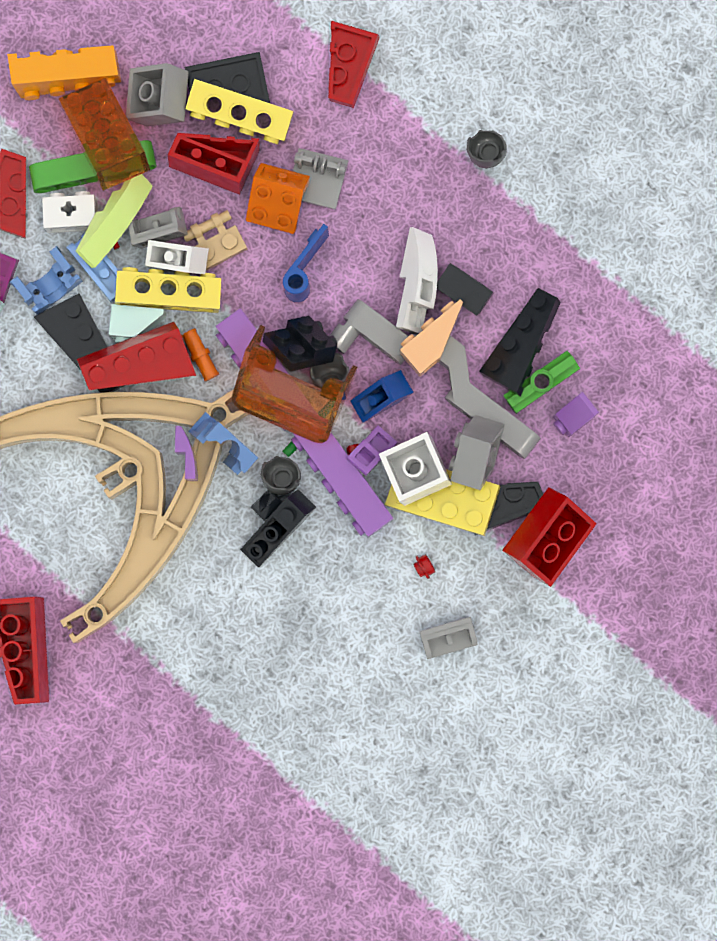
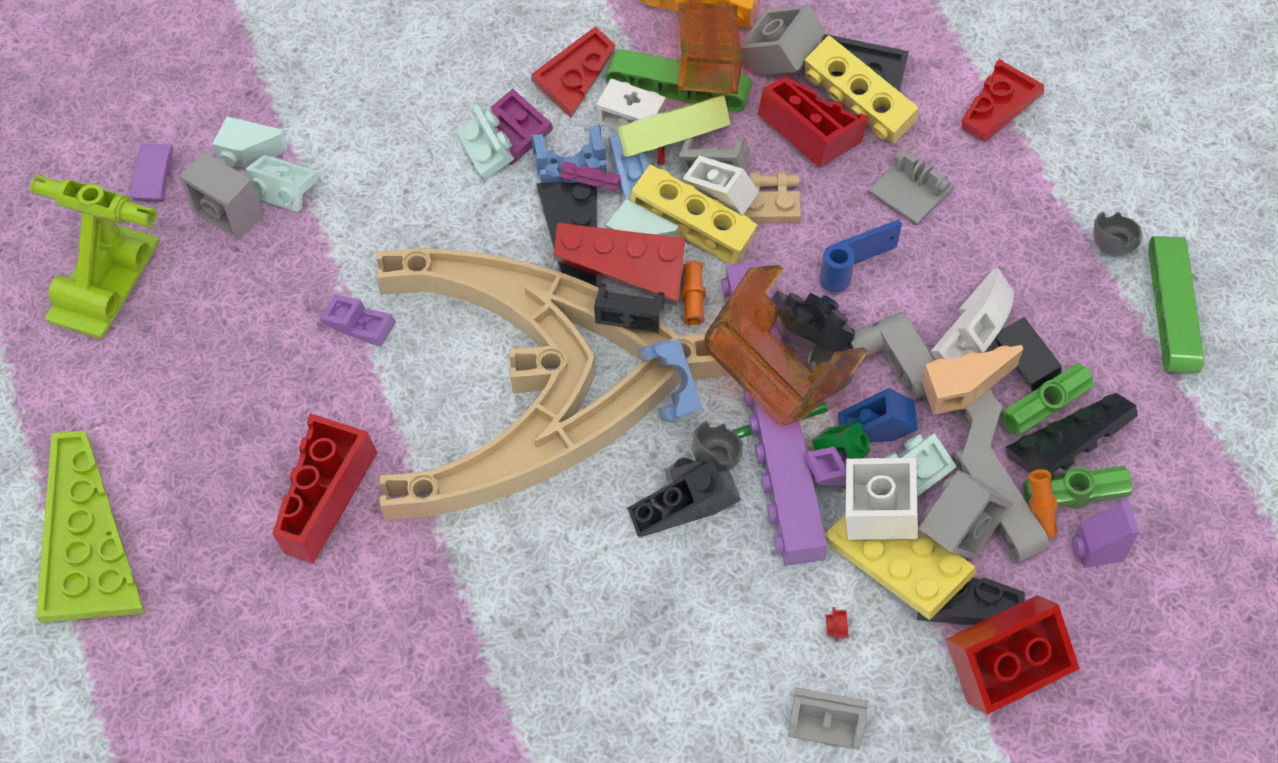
camera: 20 degrees right, 25 degrees down
(72, 293) = (590, 176): none -> magenta axle
(165, 402) = (629, 310): none -> black hinge
(184, 447) = (623, 363): medium lavender slope -> none
(276, 198) = (856, 184): orange bracket -> none
(366, 425) = (844, 437): none -> green bracket
(424, 415) = (931, 459): none -> light aqua bracket
(501, 307) = (1035, 408): none -> bright green piece
(524, 411) = (1043, 502): none -> orange pin
(551, 190) = (1175, 304): none -> bright green beam

